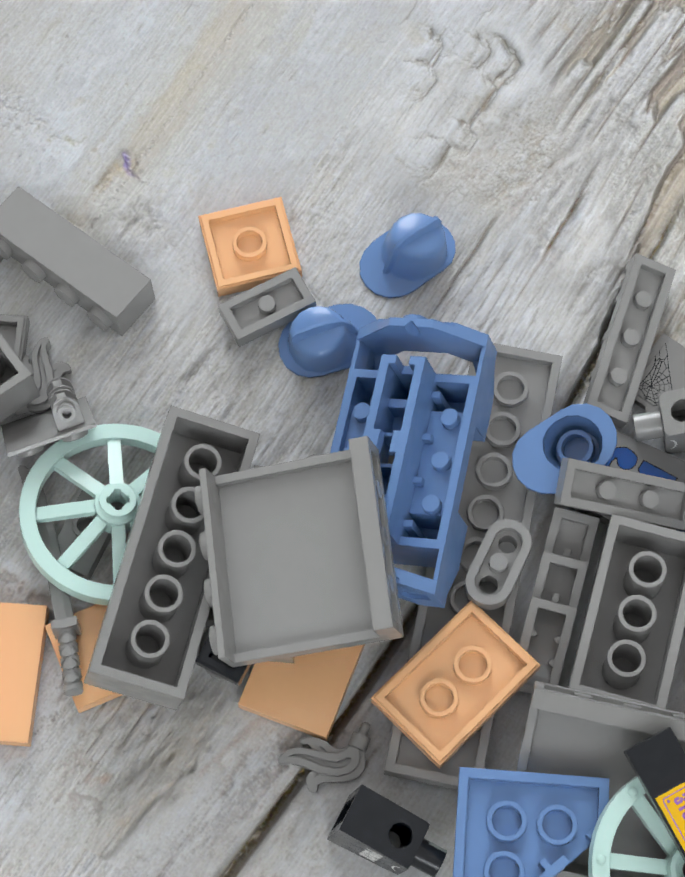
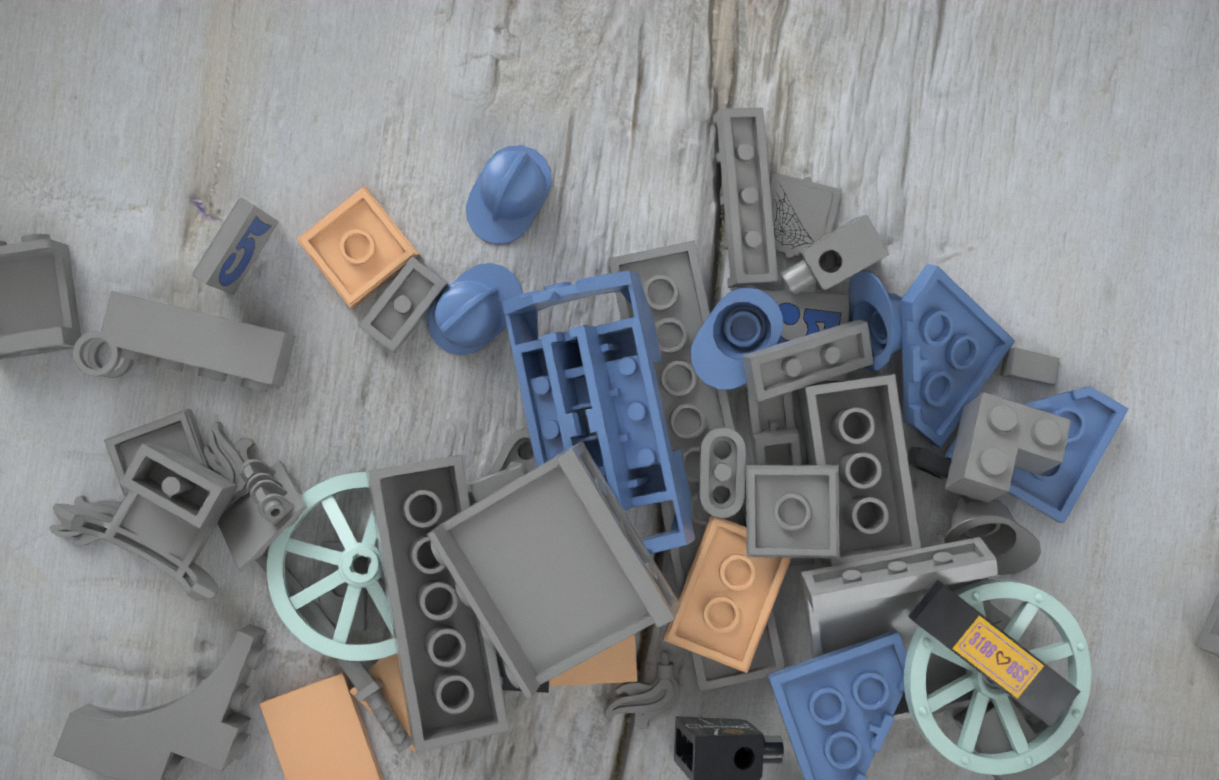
camera: 30 degrees left, 20 degrees up
(144, 193) = (235, 247): none -> light grey tile
(551, 621) = (793, 511): none -> light grey tile

